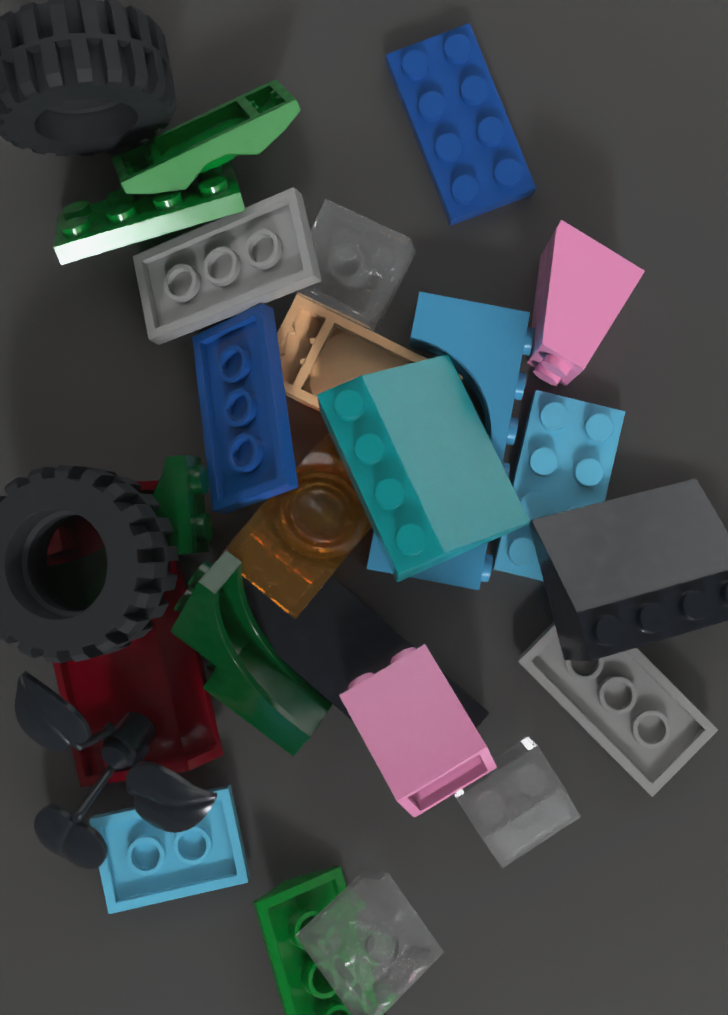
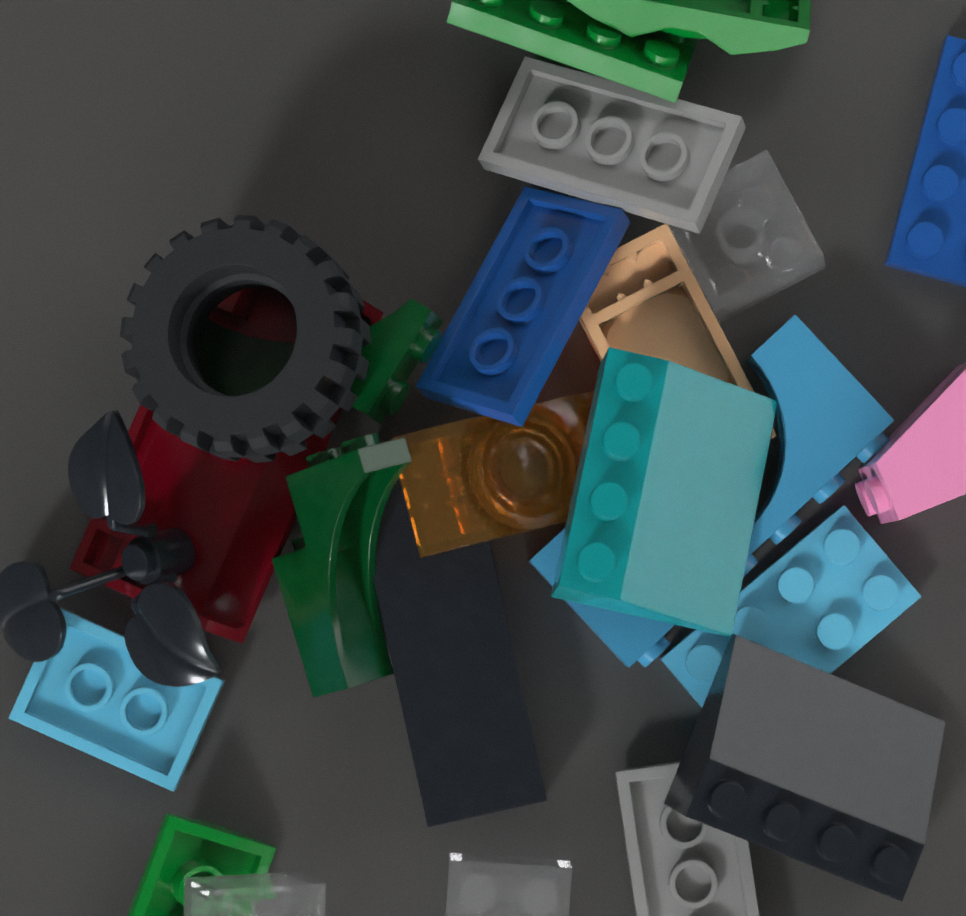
camera: 40 degrees right, 0 degrees up
(417, 730) = (462, 761): bright pink slope -> none

